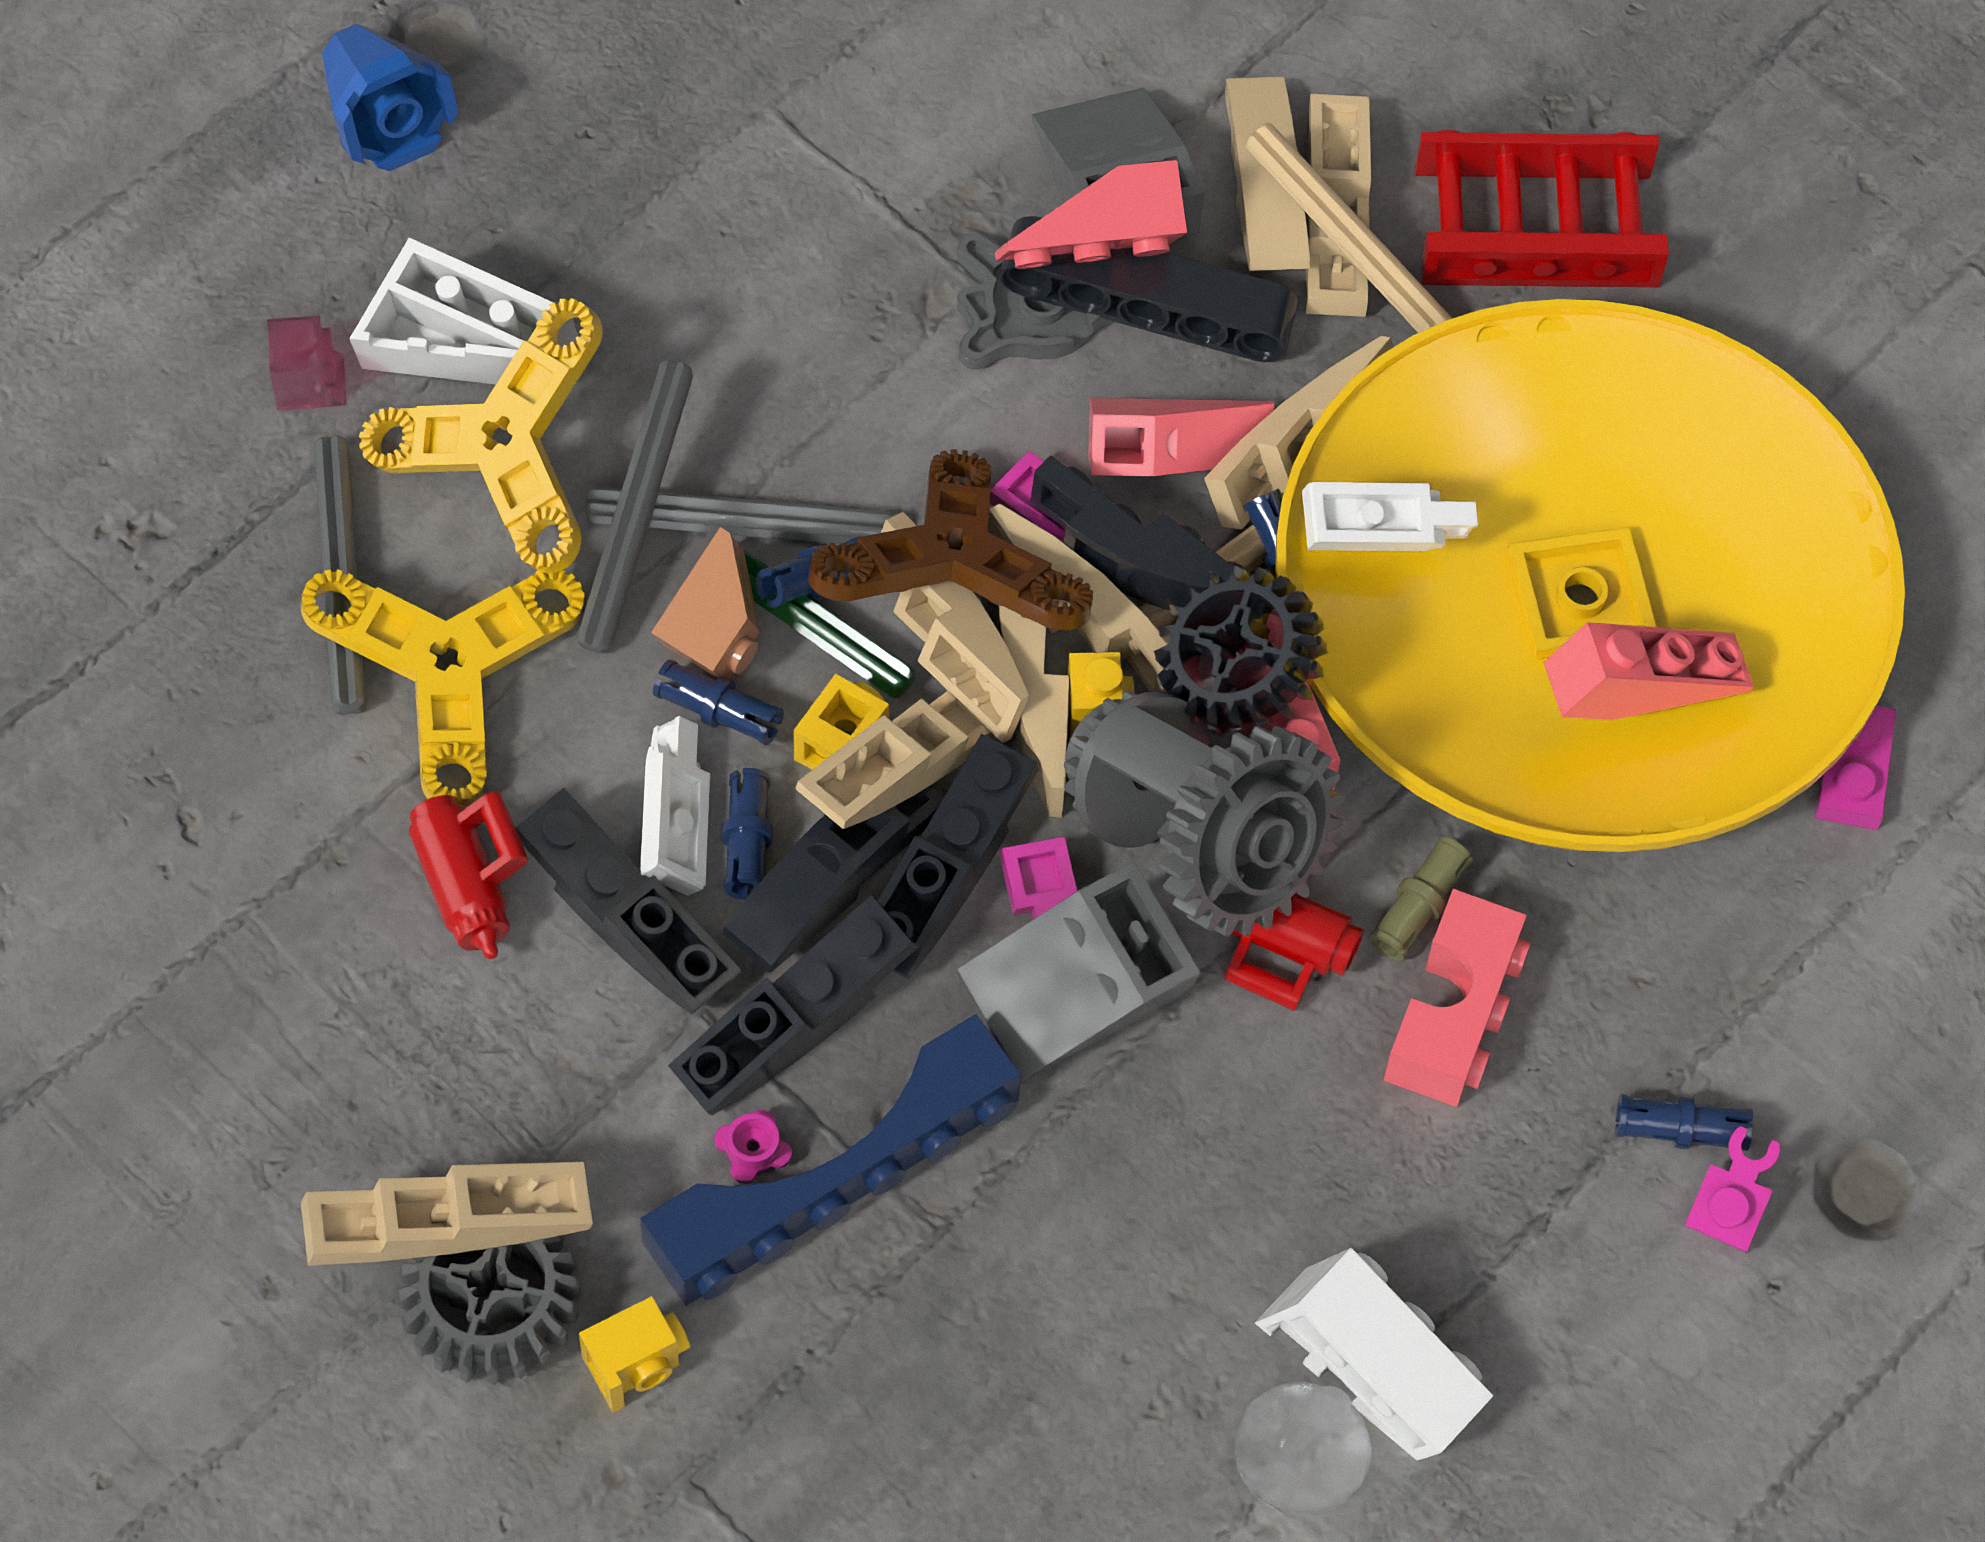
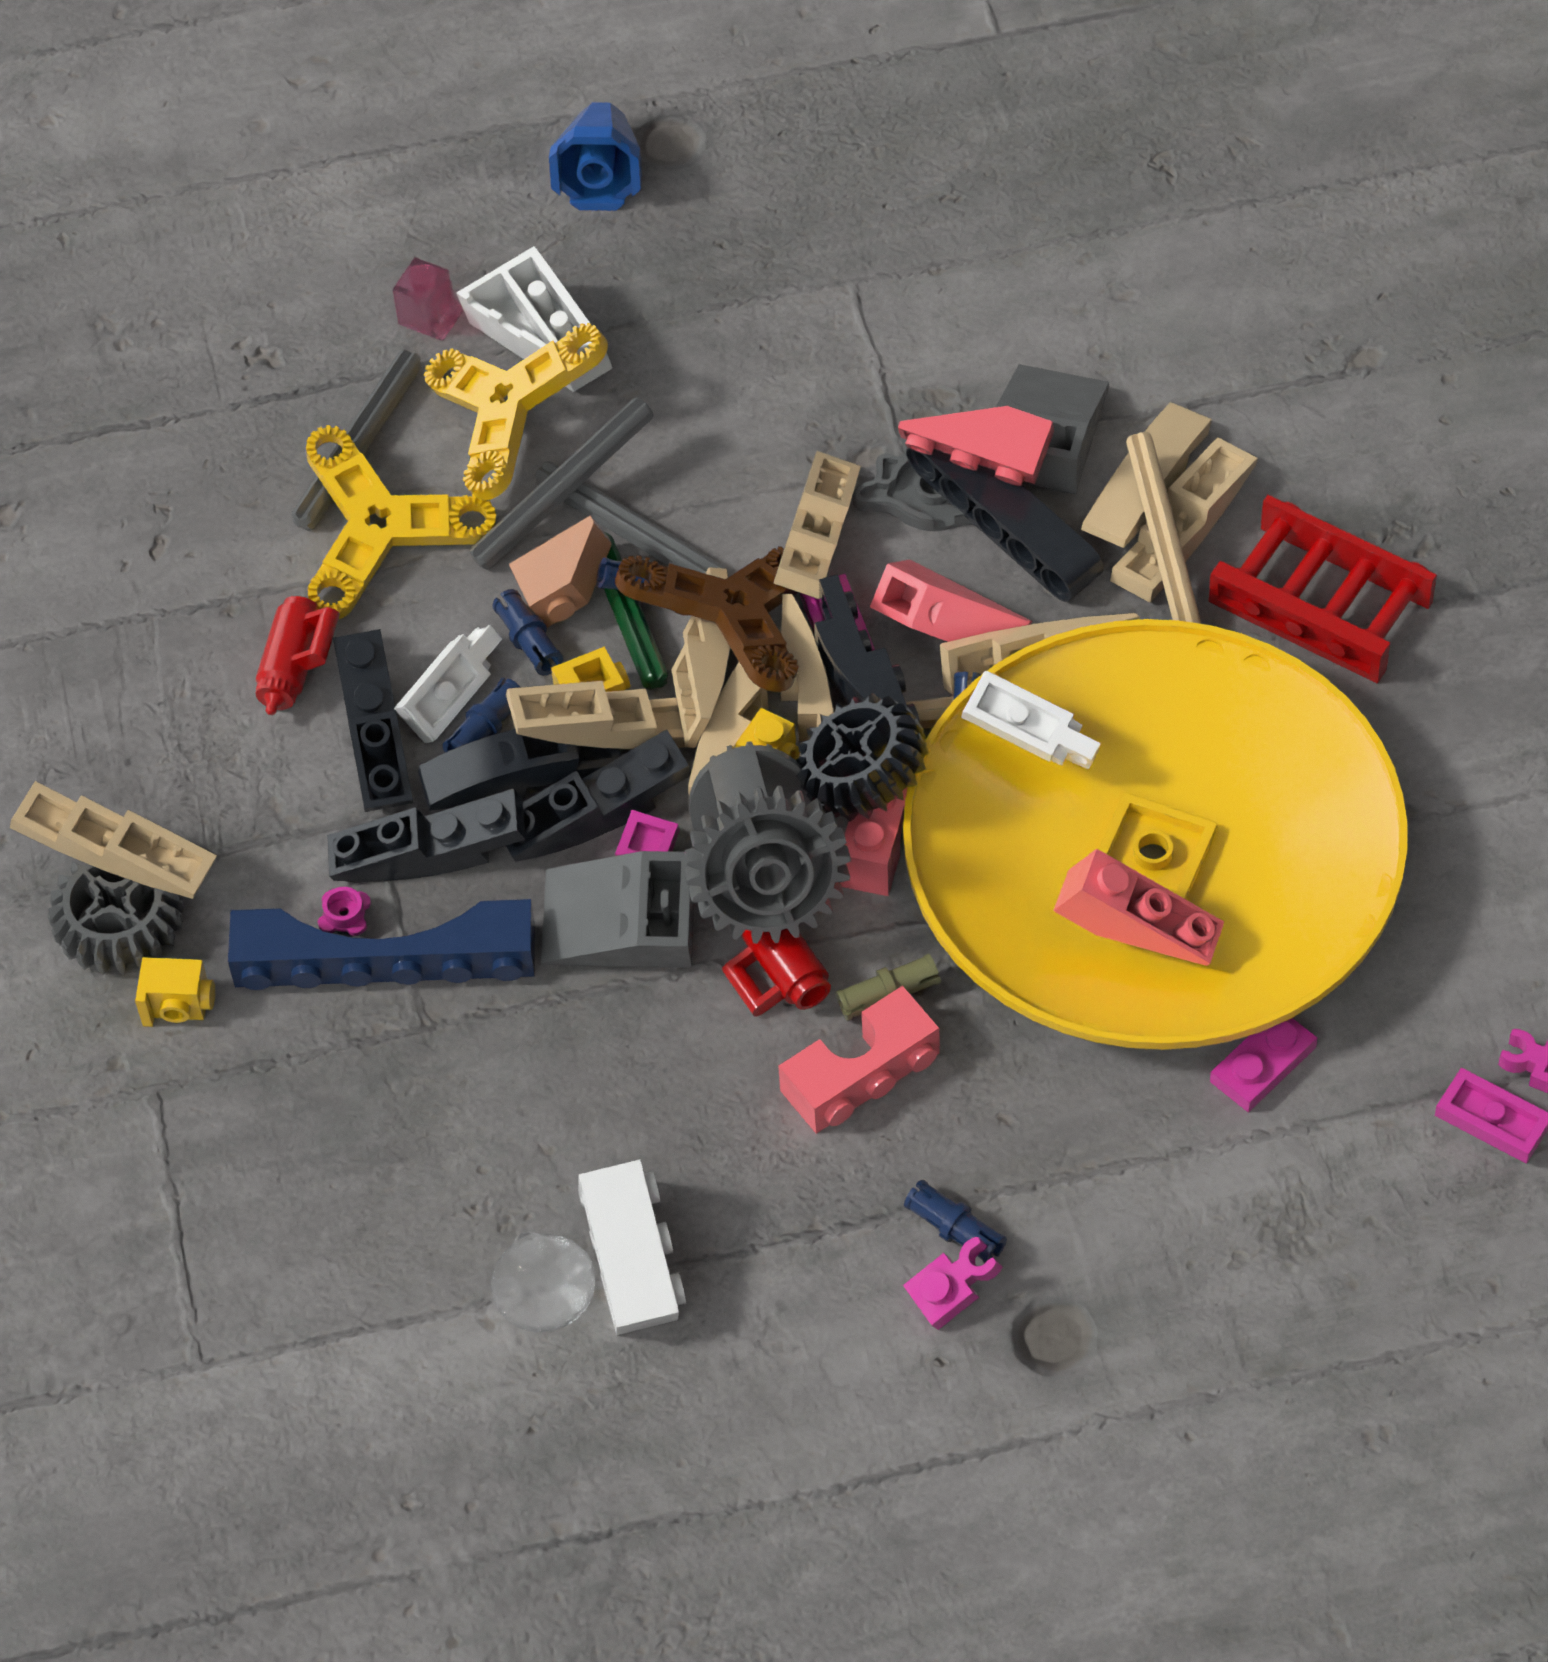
camera: 40 degrees right, 5 degrees down
(956, 410) = (817, 524): none -> tan slope

